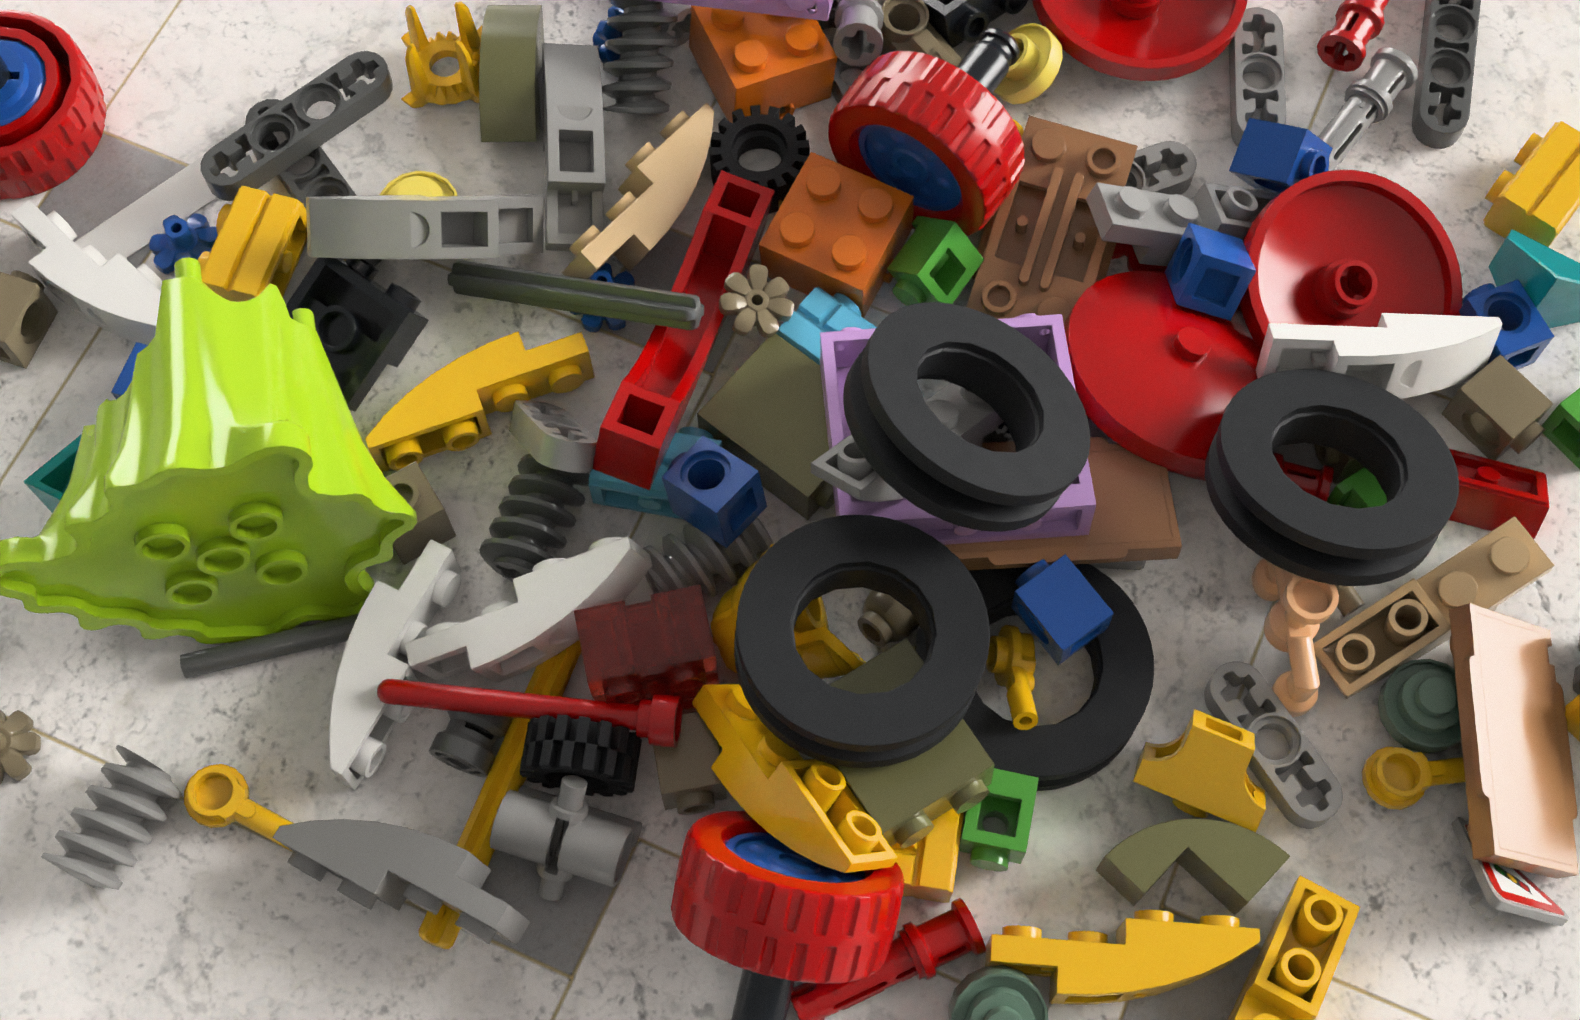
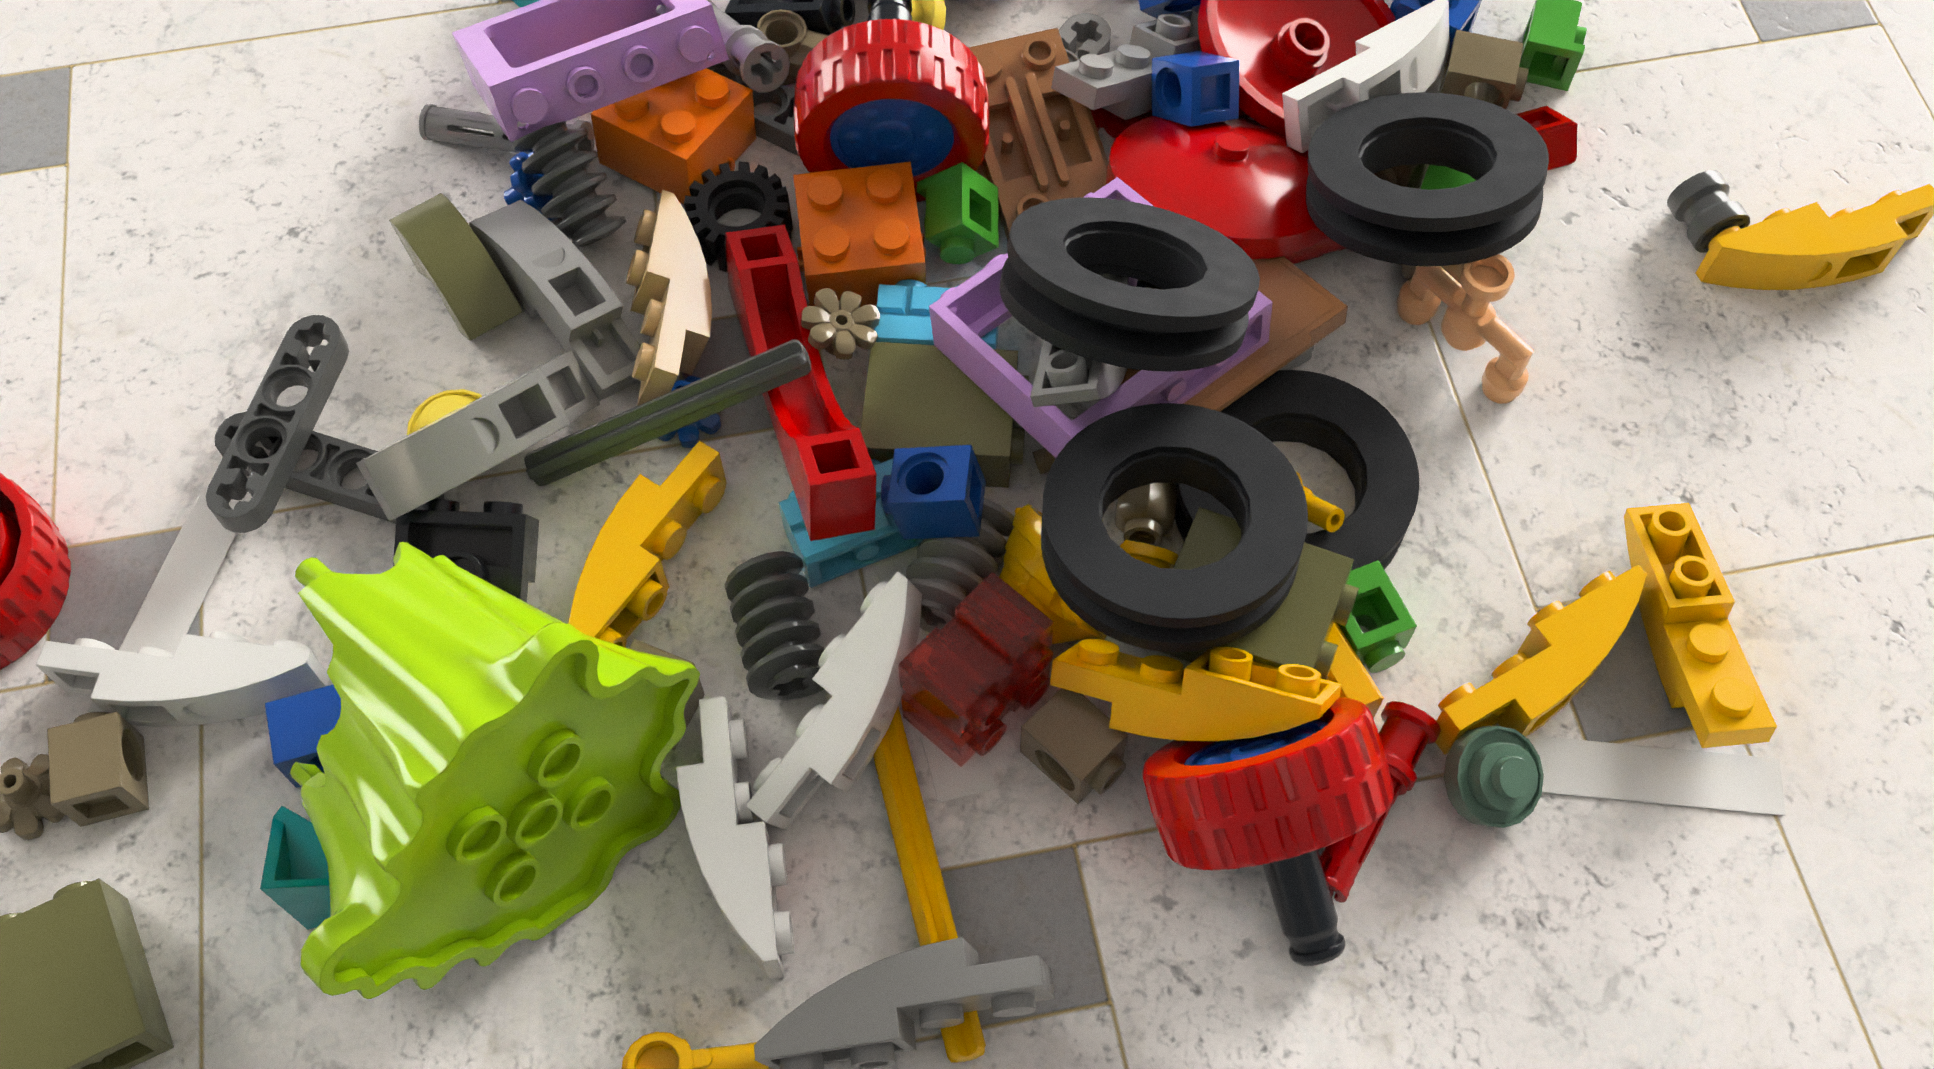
camera: 35 degrees left, 5 degrees down
(181, 240) = (237, 597): blue plant -> none
(255, 245) = (303, 527): yellow brick -> none
(267, 646) = (606, 899): dark grey piece -> none
(423, 53) = (393, 272): yellow piece -> none
(469, 741) = (862, 850): dark grey wheel -> none
(553, 436) = (747, 540): light grey beam -> none
(564, 836) = (1020, 878): light grey pin -> none
(582, 748) = (983, 796): black tyre -> none
(652, 719) = (1030, 718): red piece -> none
(1060, 607) = (1295, 410): blue brick -> none
(1206, 771) = (1494, 473): yellow brick -> none
(1218, 854) = (1556, 536): olive brick -> none
(1315, 770) = (1544, 418): light grey beam -> none
(1400, 777) = (1632, 388): yellow plate -> none
(1417, 613) = (1558, 244): tan slope -> none
(1421, 706) = (1608, 324): sand green plate -> none
(1504, 888) = (1753, 416): piece -> none
(1513, 744) = (1696, 308): piece -> none

